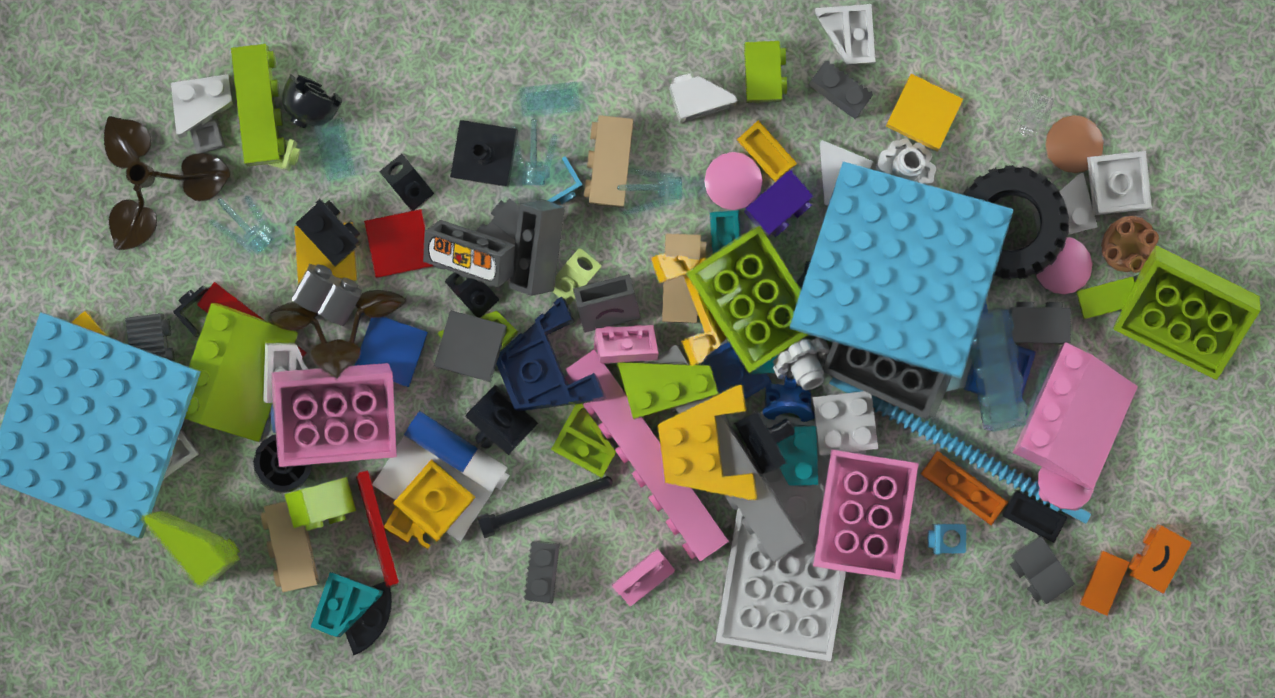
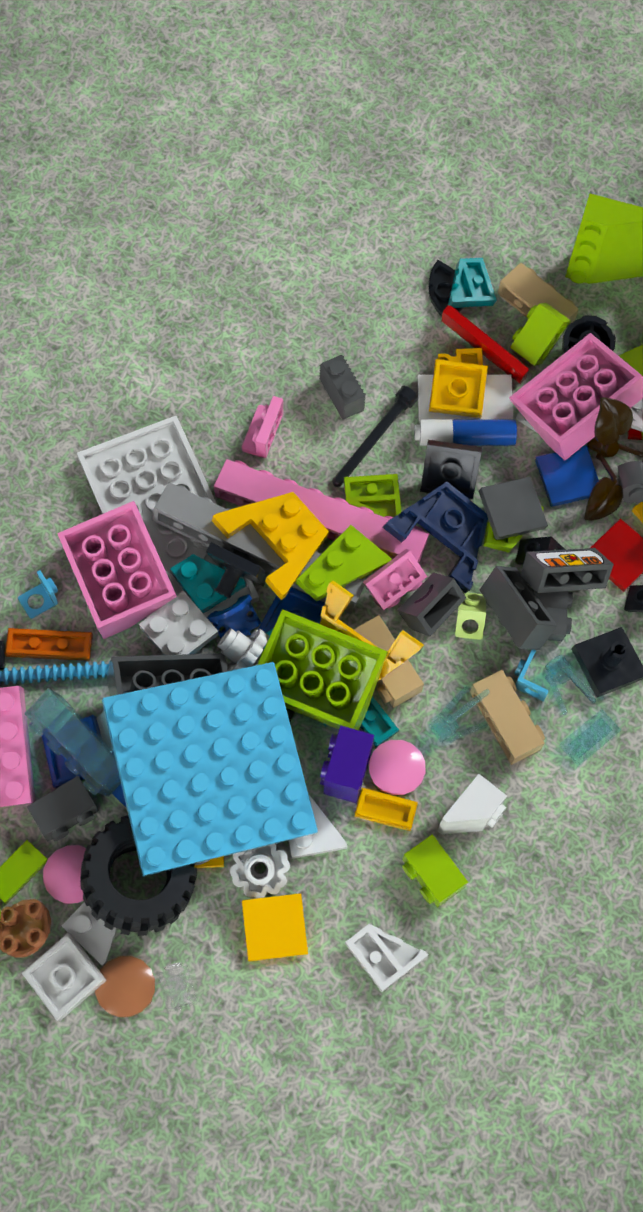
camera: 145 degrees right, 20 degrees down
(840, 89) = (359, 897): dark grey brick -> none

